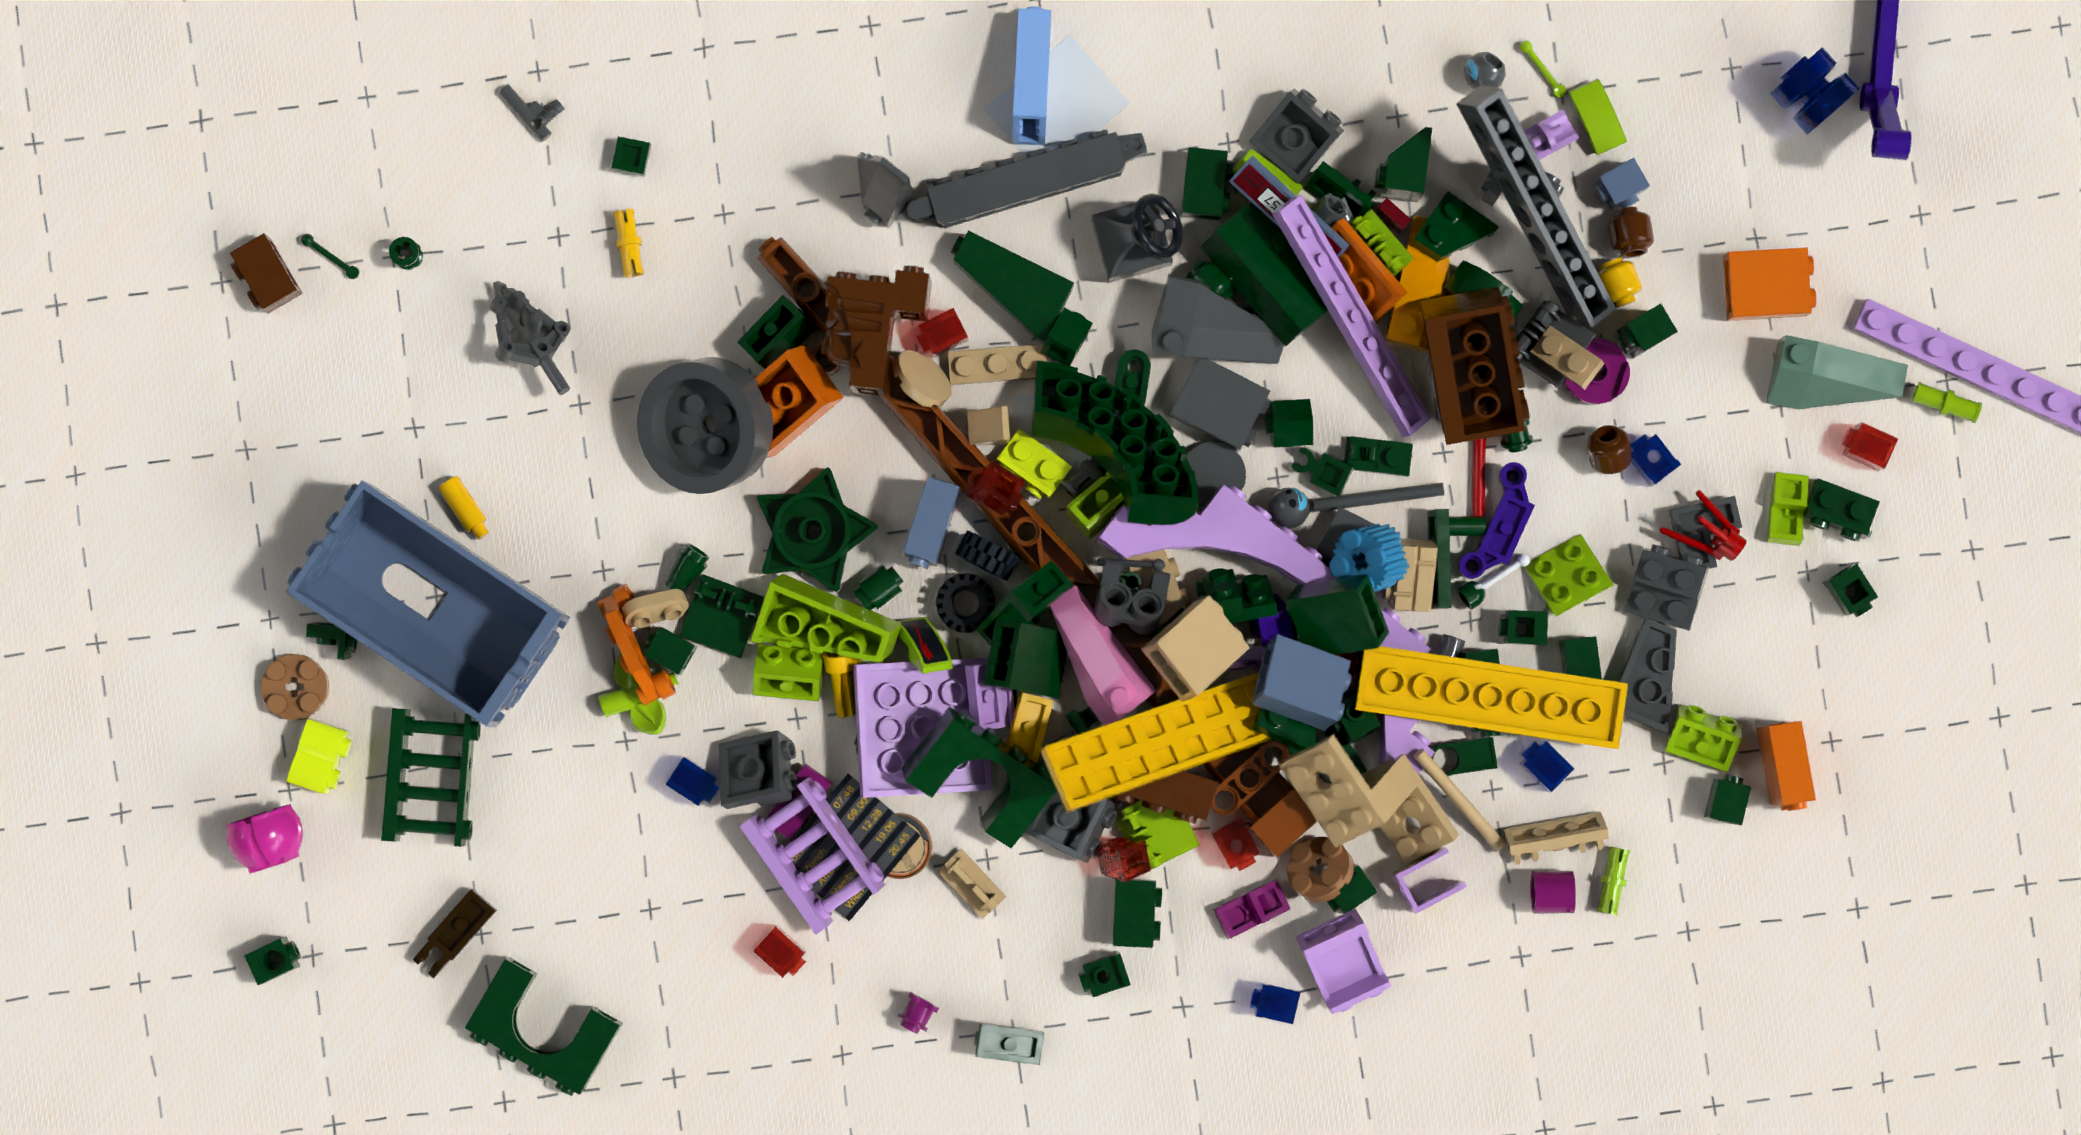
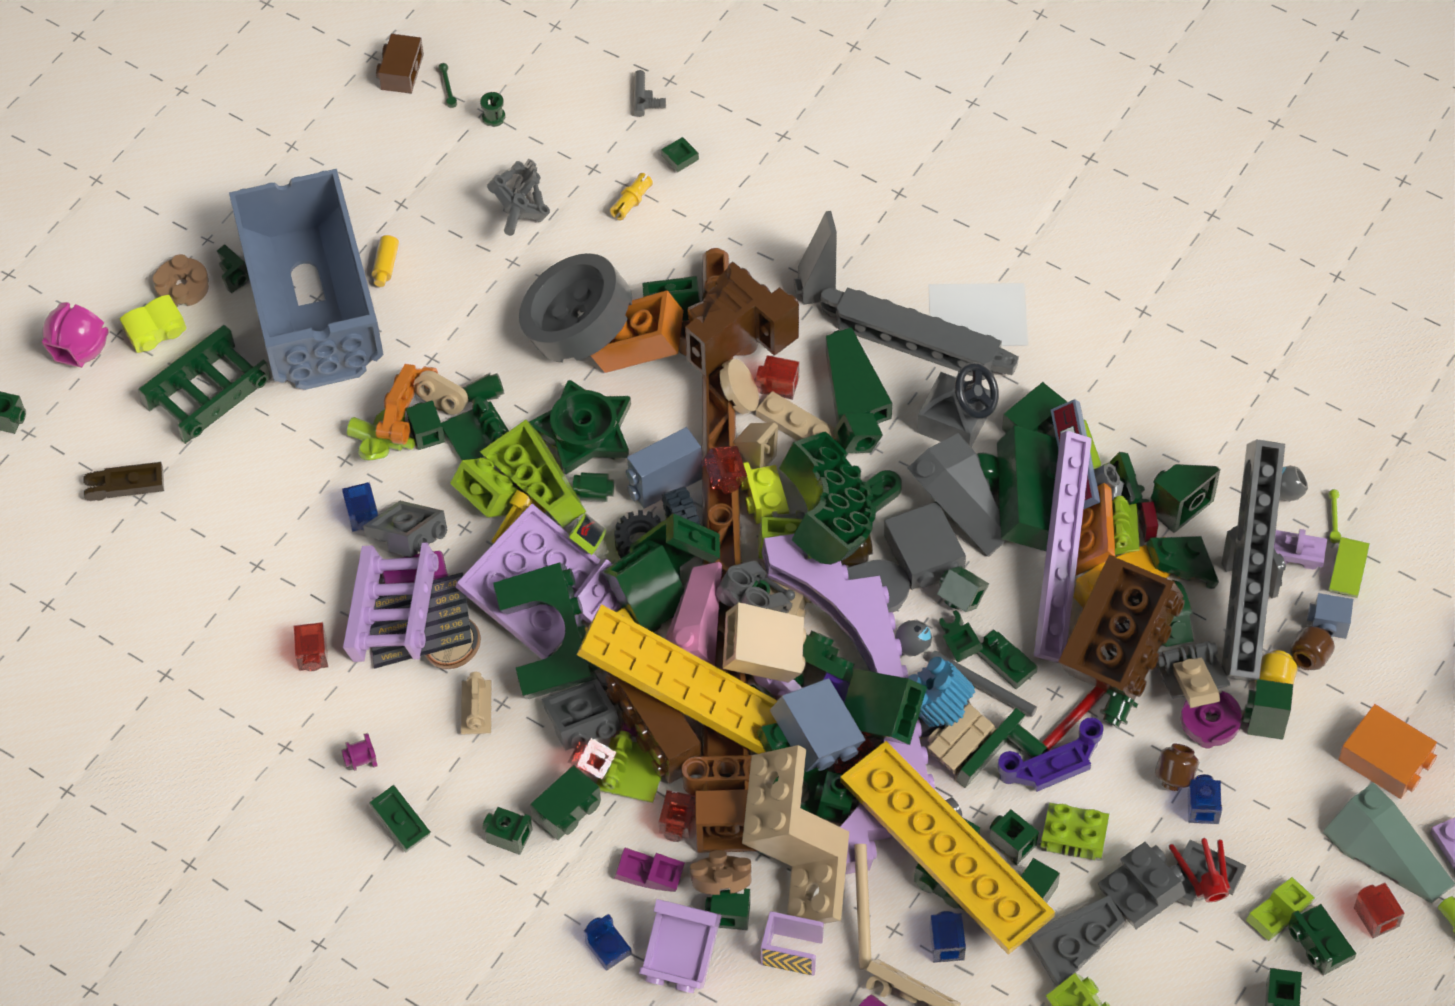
camera: 45 degrees right, 30 degrees down
(496, 1023) = (96, 547): dark green arch -> none
(1031, 76) = (973, 279): light blue slope -> none
(1297, 134) = (1125, 429): dark grey plate -> none
(1472, 755) = (900, 892): dark green piece -> none
(1473, 593) = (996, 790): hinge -> none

